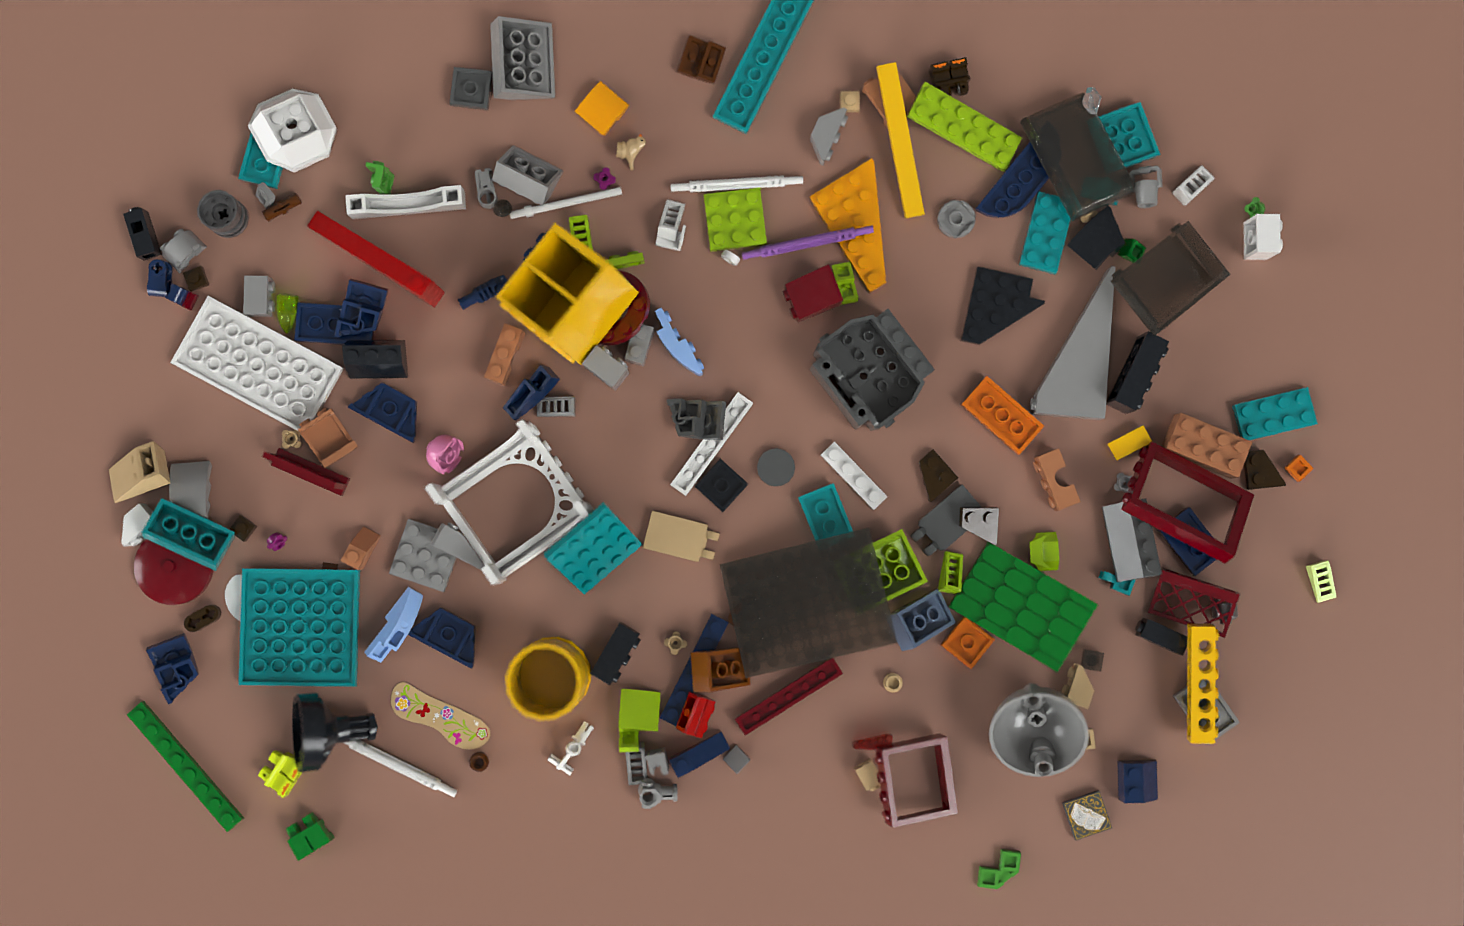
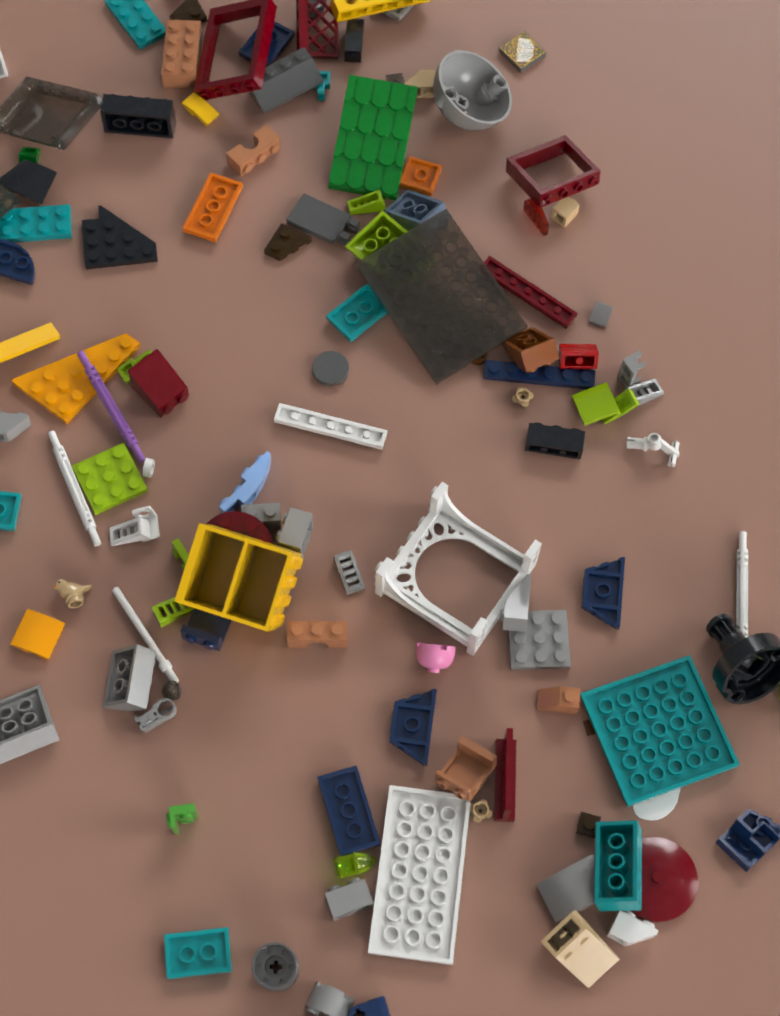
camera: 105 degrees left, 20 degrees down
(182, 297) = (379, 979): dark blue leg -> none
(196, 278) = (354, 977): dark brown plate -> none
(200, 614) = (690, 833): dark brown beam -> none
(265, 195) = (239, 934): light grey tile -> none
(276, 541) = (587, 783): magenta plate -> none
(293, 201) = (245, 913): reddish brown pin -> none
(294, 147) = (167, 951): white piece -> none
(361, 308) = (323, 785): dark blue slope -> none
(375, 359) = (367, 753): black slope -> none
(377, 259) = (267, 786): red slope -> none
(399, 623) = (608, 635): light blue slope -> none
(434, 200) = (198, 784): white arch -> none
(454, 724) = (682, 556): tan sticker -> none
(471, 88) = (56, 767): dark grey plate -> none
(474, 766) = (704, 518): reddish brown plate -> none
(483, 292) = (261, 677): dark blue hinge -> none
(531, 392) = (345, 597): dark blue slope -> none
(548, 678) = (603, 474): yellow piece -> none
(593, 548) = (469, 480): teal plate -> none
(603, 184) = (114, 606): magenta plate -> none
(657, 793) = (661, 368): light grey connector -> none
(678, 537) = (427, 425): tan tile -> none
(698, 418) = (311, 443): dark grey slope -> none
(698, 754) = (610, 344): dark blue slope -> none
(721, 485) = (365, 406): black tile -> none
(853, 352) = (228, 300): dark grey piece -> none
(854, 476) = (312, 305): white plate -> none
(892, 682) = (479, 218): tan plate -> none
(956, 219) = (46, 297): light grey tile -> none
(981, 522) = (313, 193): wing -> none
(996, 877) = (590, 92): bright green tile -> none
(1045, 551) = (317, 140): lime slope -> none
(1079, 373) = (150, 161): light grey slope -> none
(1120, 479) = (236, 103): light grey plate -> none
(1137, 781) = (480, 26): dark blue slope -> none

